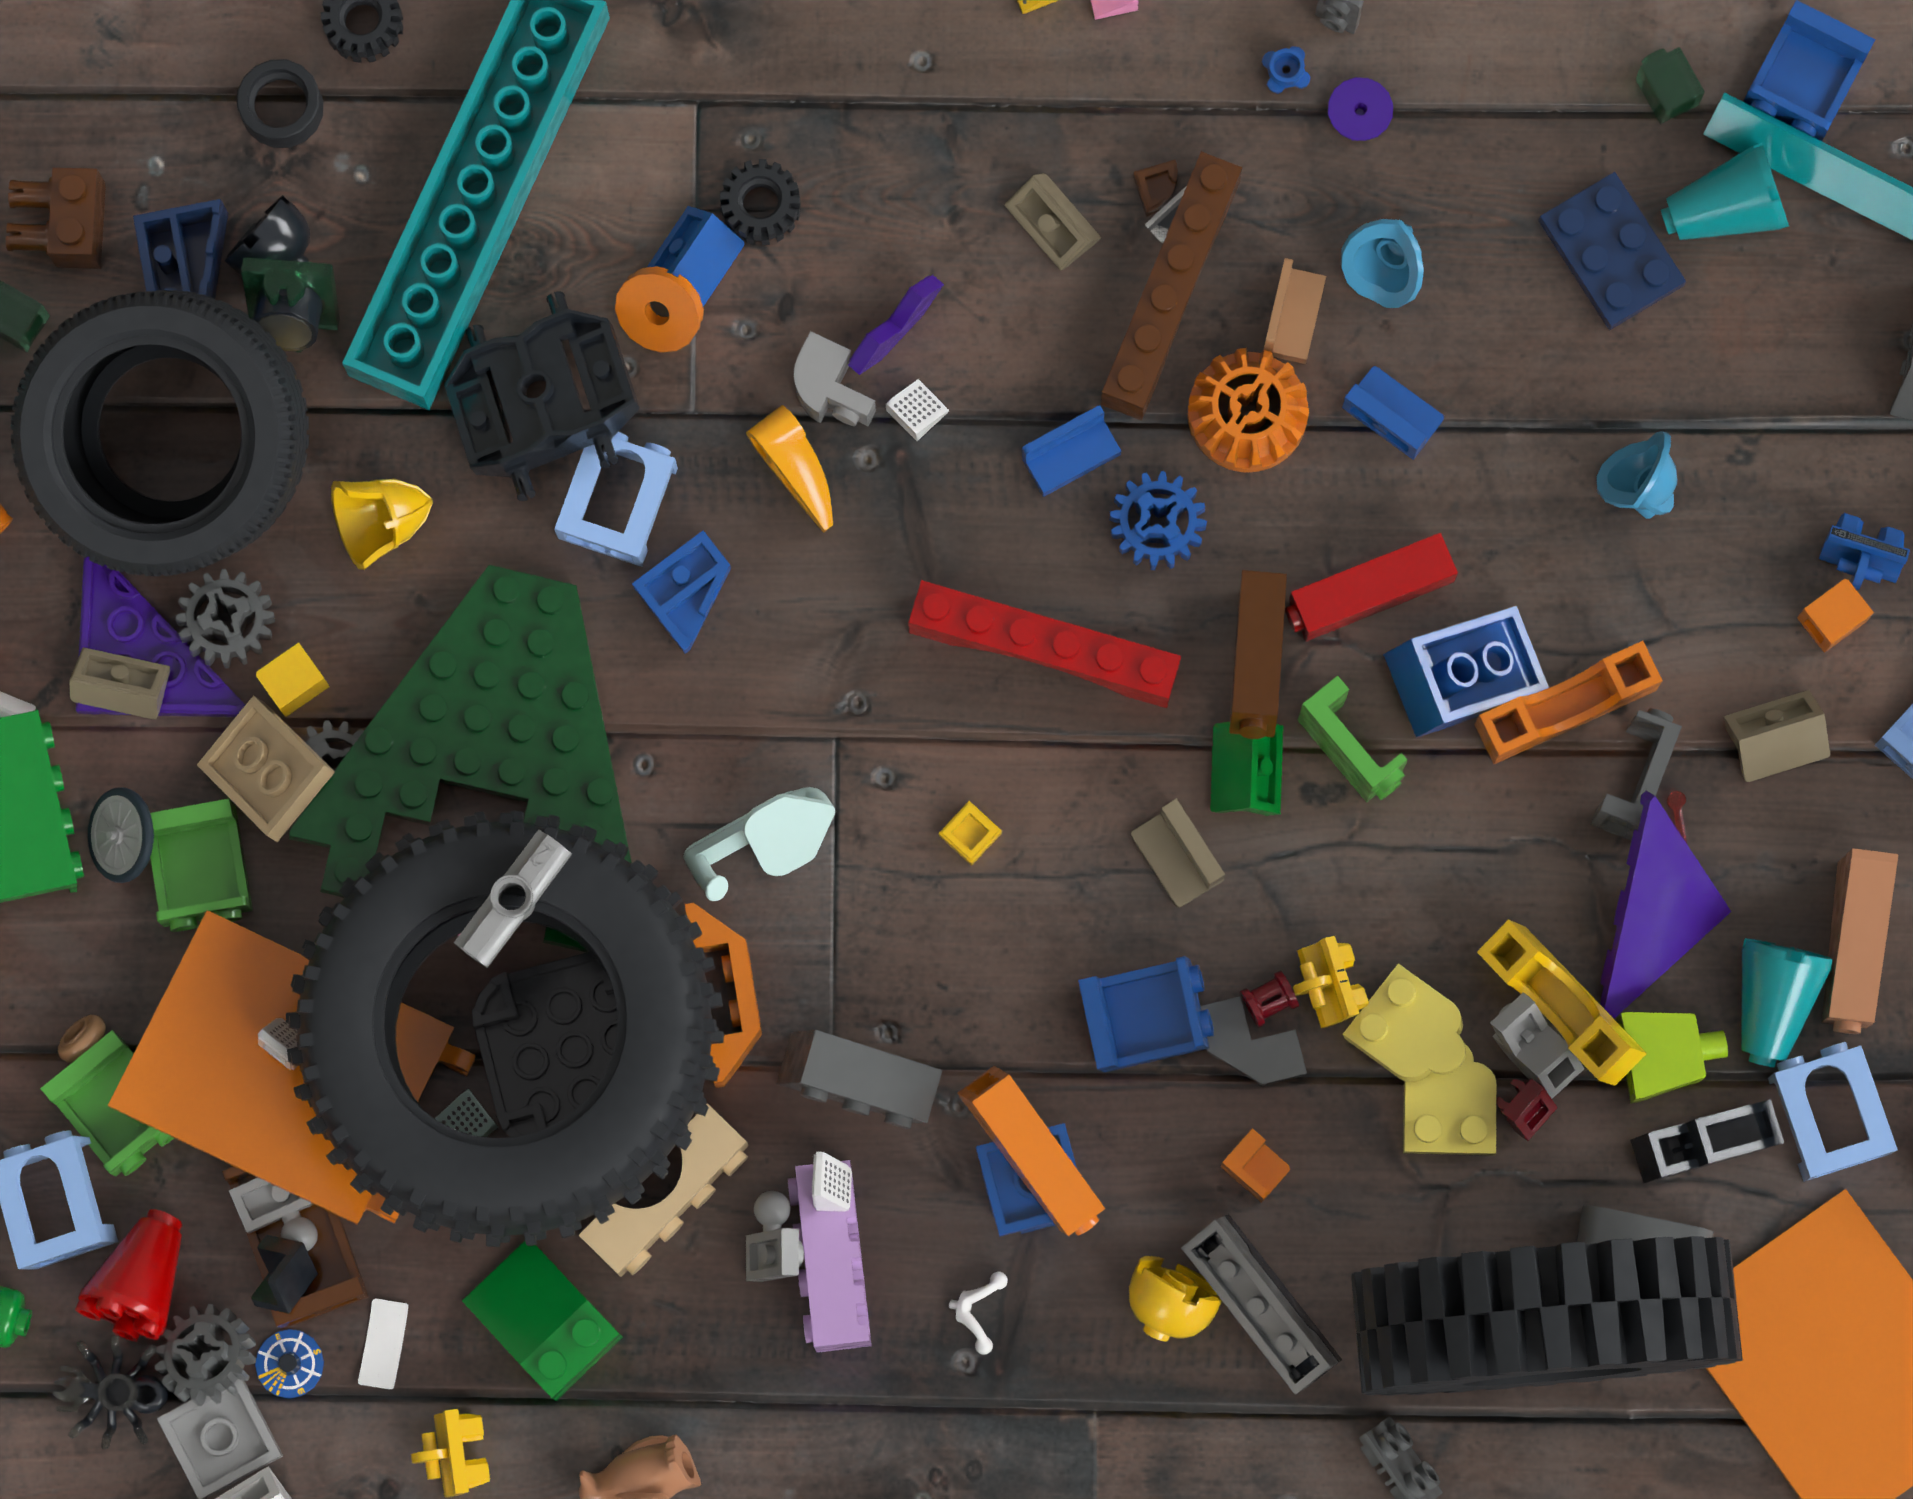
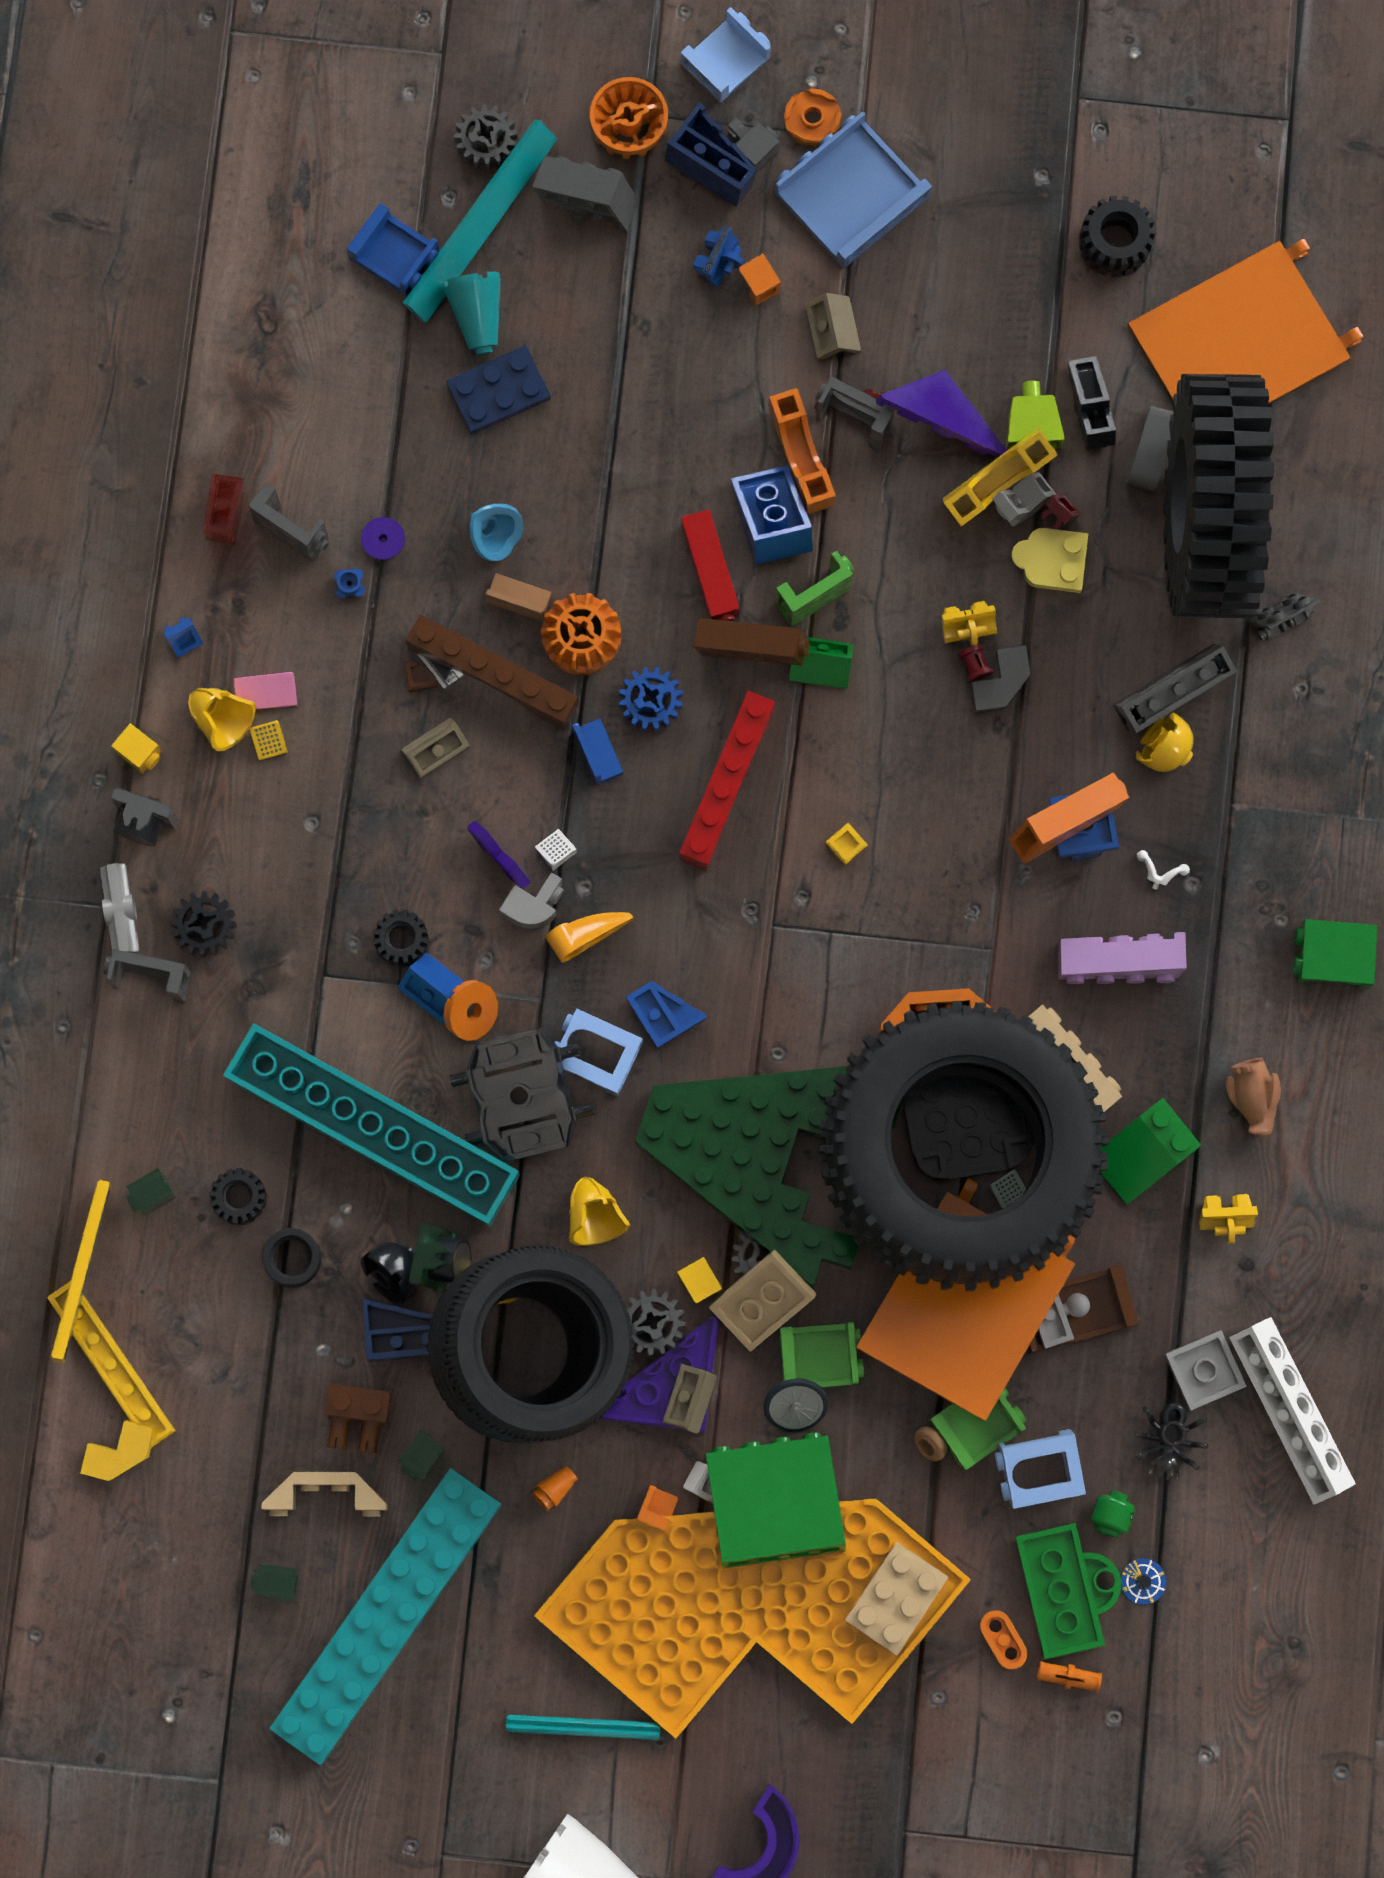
camera: 90 degrees left, 0 degrees up
(136, 1279) = (1098, 1415): red cone -> none
(218, 1363) = (1149, 1388): dark grey gear -> none
(276, 1039) = (952, 1300): white slope -> none
(288, 1276) = (1104, 1315): black panel -> none
(289, 1363) = (1158, 1323): blue piece -> none
(383, 1344) = (1150, 1259): white sticker -> none
(530, 872) = (877, 1103): light grey piece -> none
(776, 1250) = (1115, 997): light grey plate -> none
(780, 831) = (832, 965): light aqua piece -> none
(831, 1183) = (1078, 950): white slope -> none
(859, 1077) = (1004, 930): dark grey wedge -> none
(1146, 1014) = (979, 740): blue panel -> none
(1178, 854) = (874, 711): dark tan panel -> none
(1255, 1166) = (1082, 685): orange panel -> none
(1393, 412) = (592, 541): blue panel -> none
(1409, 1028) = (1003, 576): light yellow plate -> none
(1640, 477) = (653, 388): dark azure helmet -> none
(1669, 84) = (390, 338): clear green brick -> none
(1777, 997) = (1004, 345): teal cone -> none
(1791, 1089) = (1059, 344): light blue panel -> none
(1858, 938) = (972, 291): nougat slope -> none

